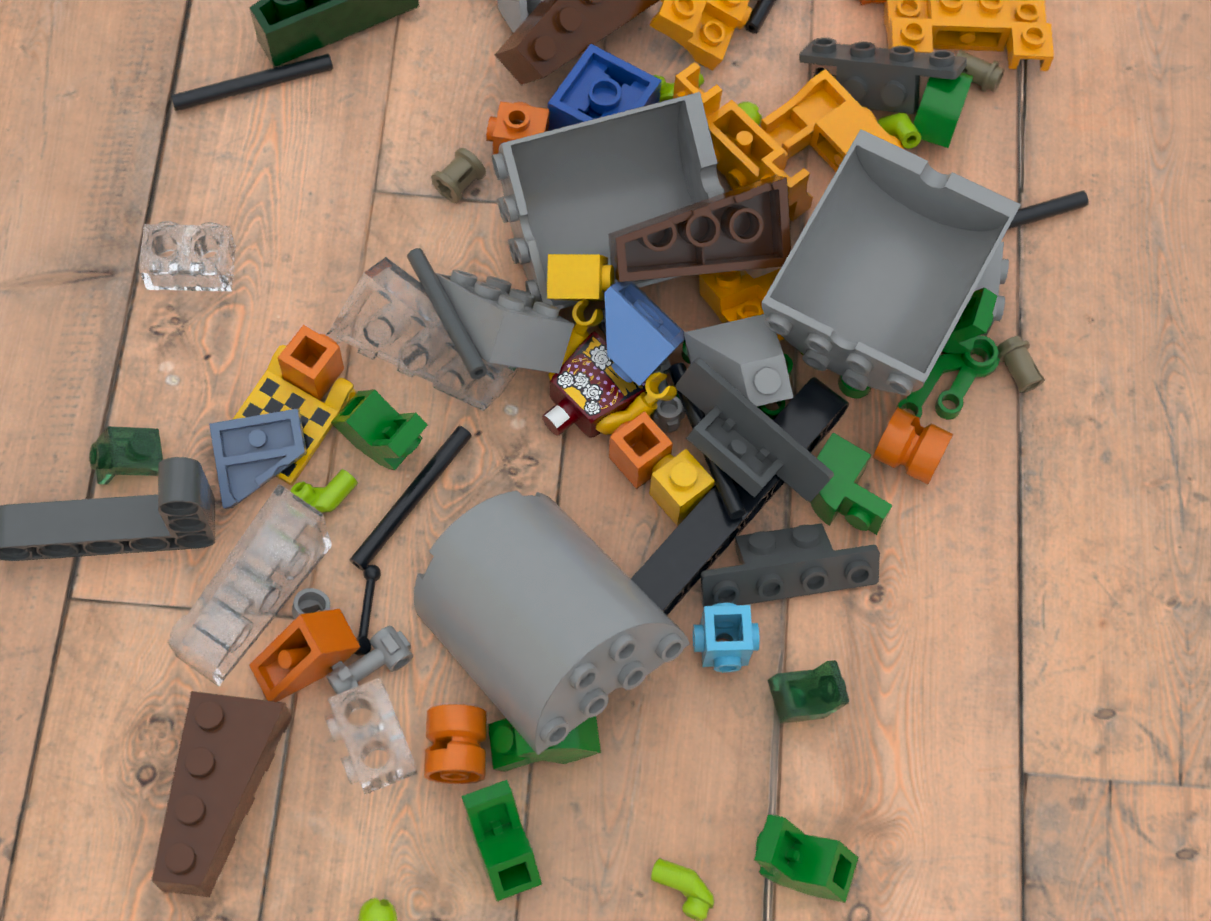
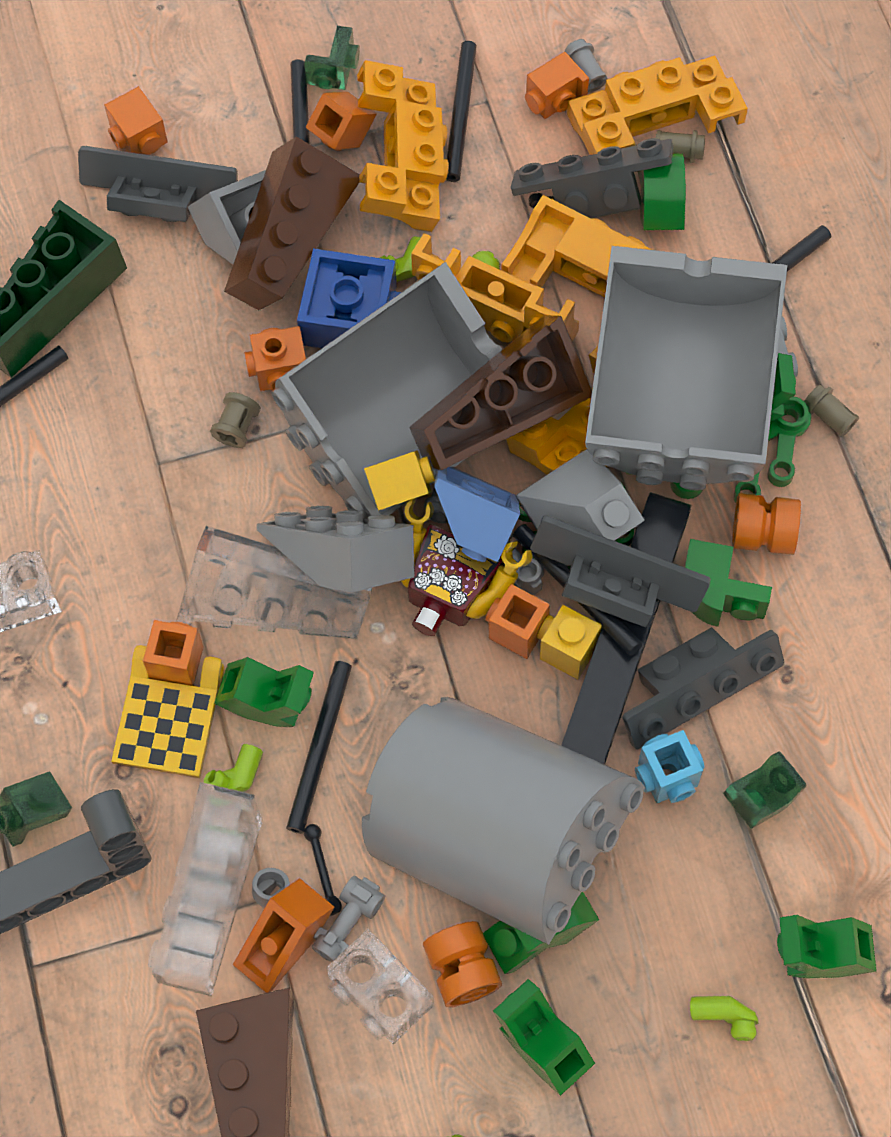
camera: 15 degrees left, 0 degrees up
(255, 451) = (154, 758): sand blue wing -> none
(447, 314) = (289, 559): dark grey piece -> none
(902, 128) = (635, 225): lime arm -> none

